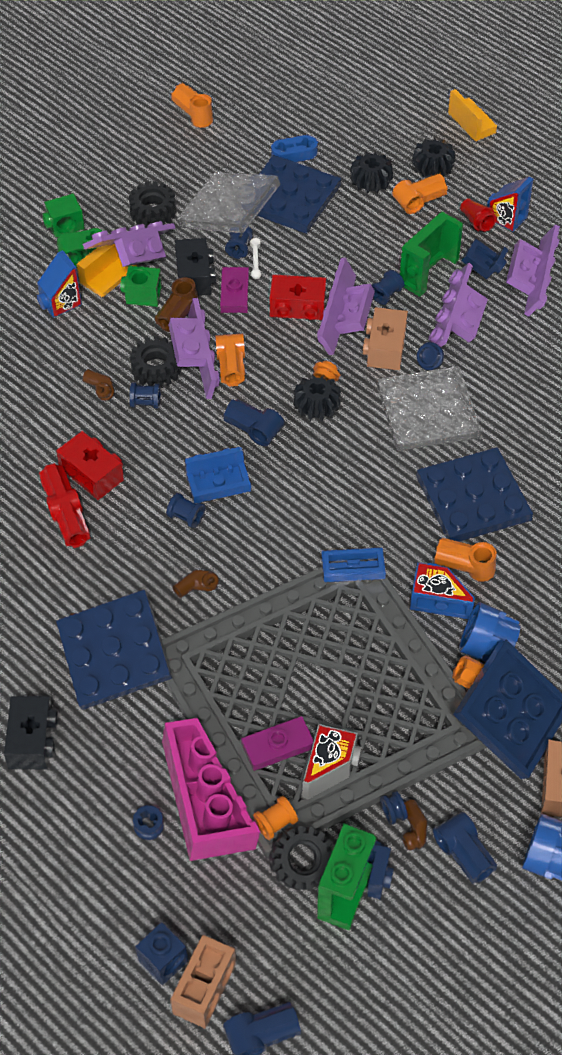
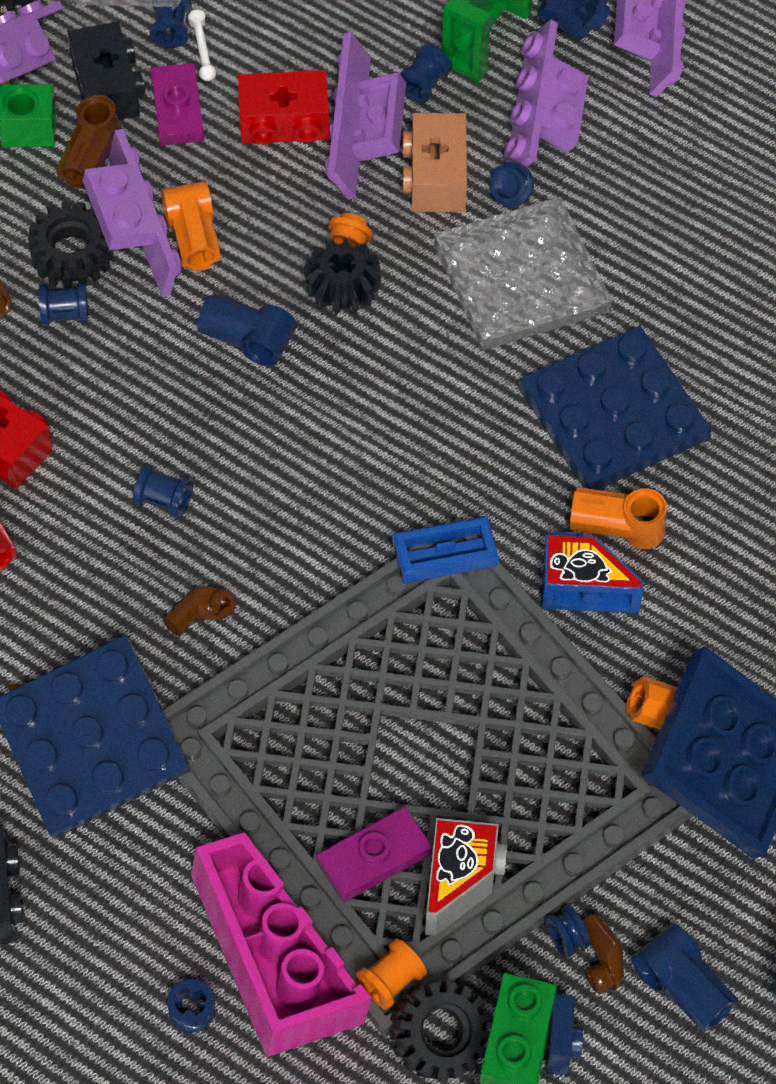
camera: 10 degrees left, 5 degrees up
(217, 475) = (204, 426): blue bracket -> none
(485, 630) = (669, 631): blue piece -> none

